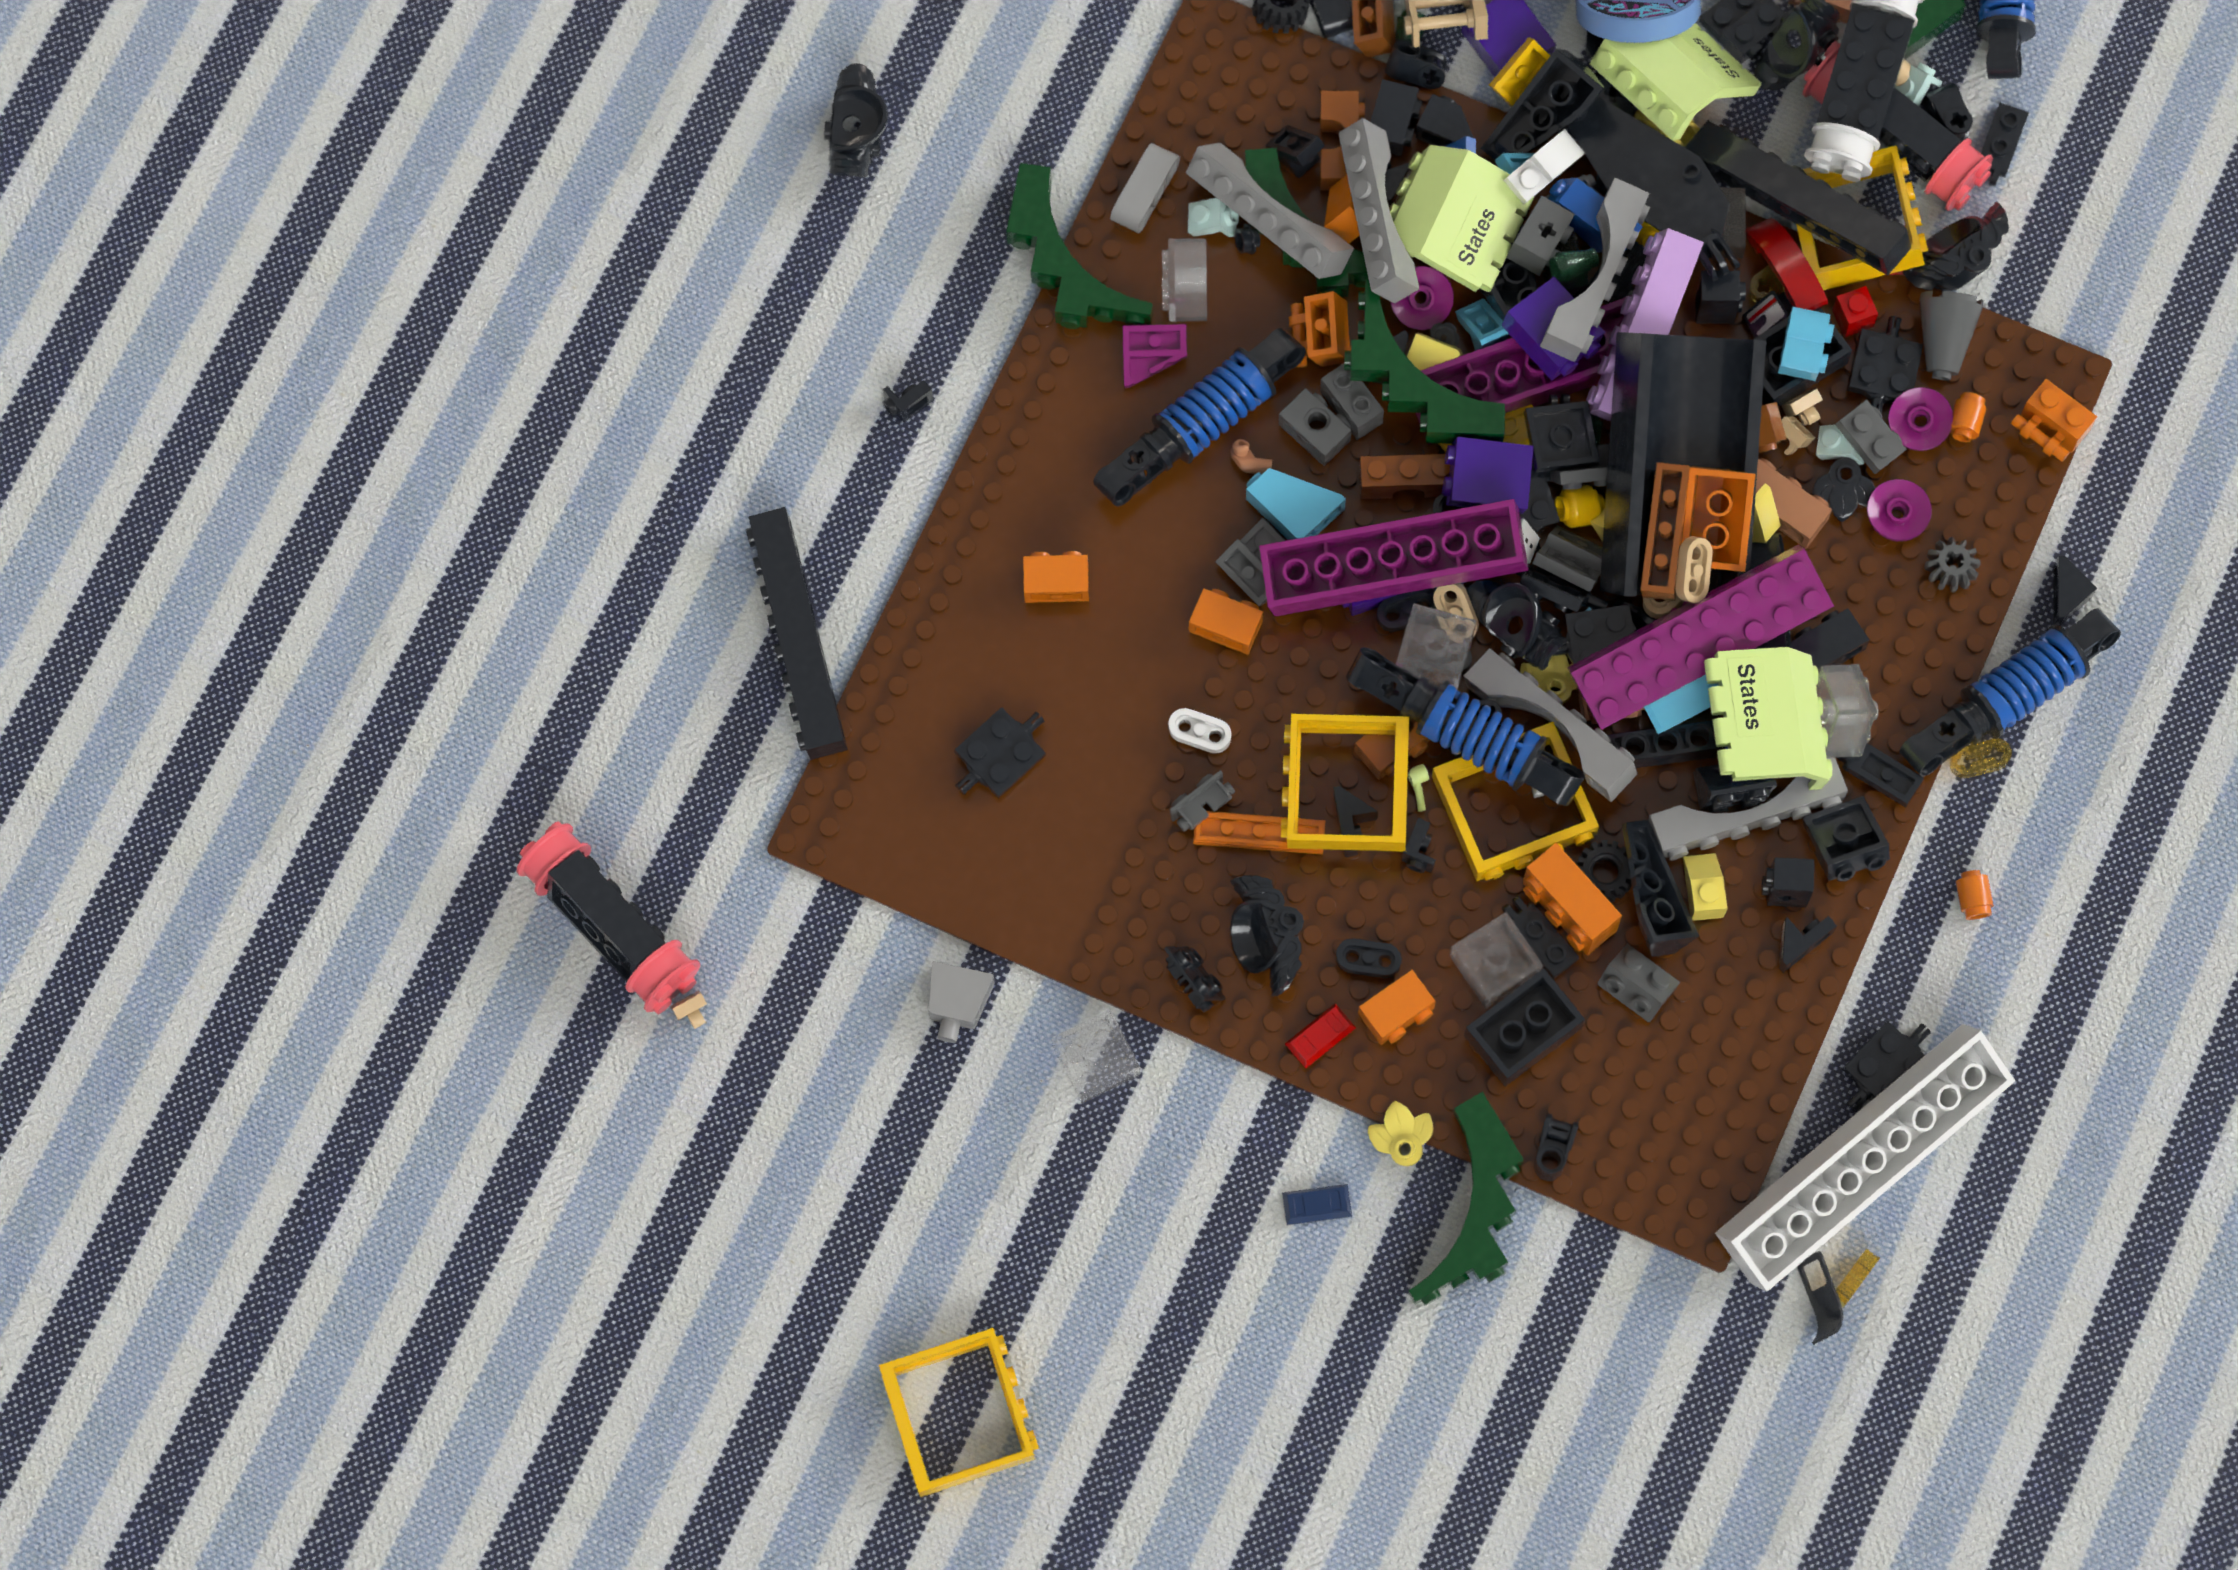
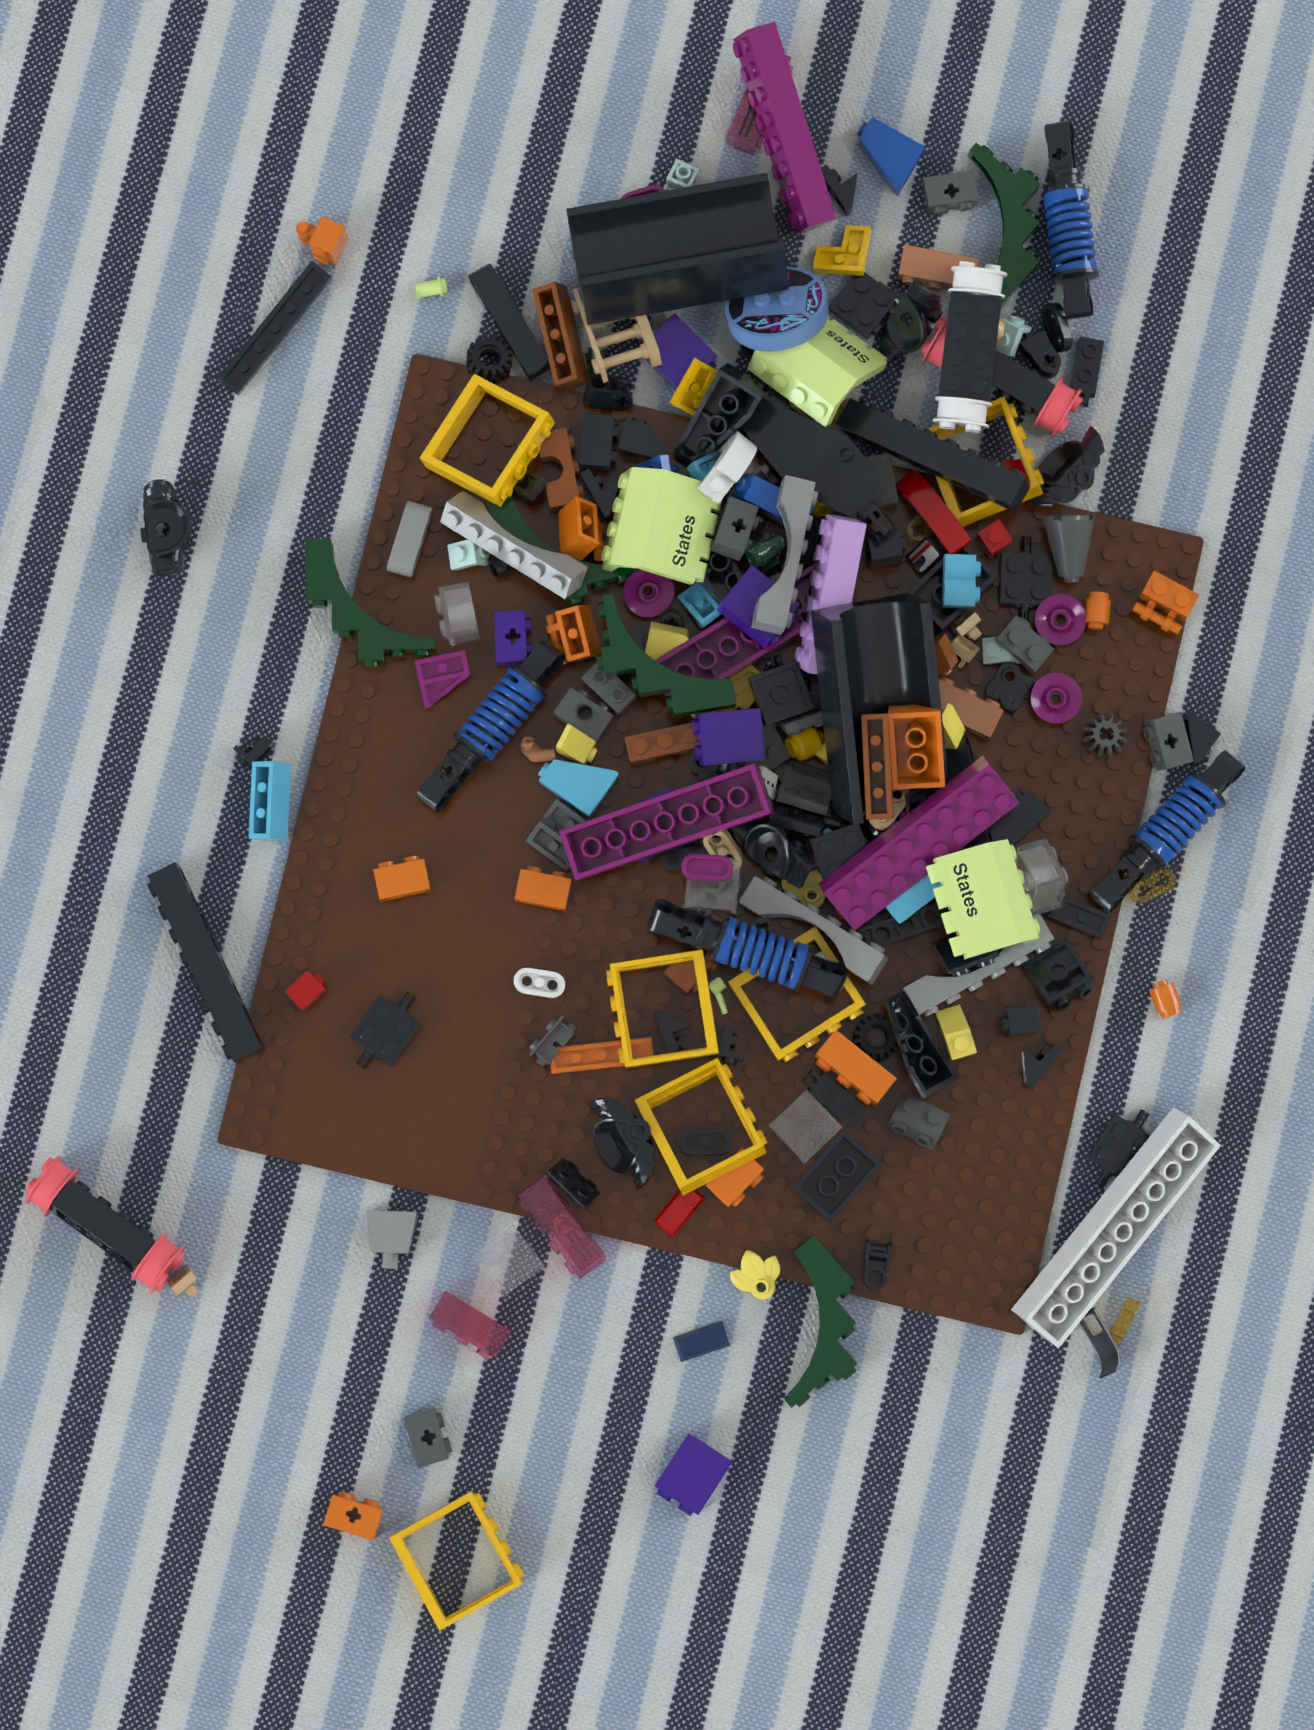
camera: 15 degrees left, 10 degrees up
(851, 1348) = (340, 1520): none -> orange brick
(913, 686) = (307, 990): none -> red brick
(914, 458) = (269, 801): none -> medium azure brick
(946, 1273) = (416, 1426): none -> dark grey brick
(1032, 1127) = (470, 1325): none -> clear pink brick
(1170, 1026) = (562, 1226): none -> clear pink brick
(1234, 57) = (456, 420): none -> yellow window
(1242, 305) = (505, 624): none -> dark purple brick
(1275, 1364) = (692, 1475): none -> dark purple brick
(1299, 456) = (576, 746): none -> light yellow slope
(1352, 884) = (681, 1085): none -> yellow window
(1386, 259) = (584, 492): light grey arch -> none
(1432, 621) = (707, 867): none -> magenta tile
(1694, 569) = (905, 794): tan plate -> none
(1974, 85) = (1057, 327): none -> black plate
(2029, 586) = (1178, 748): none -> dark grey brick

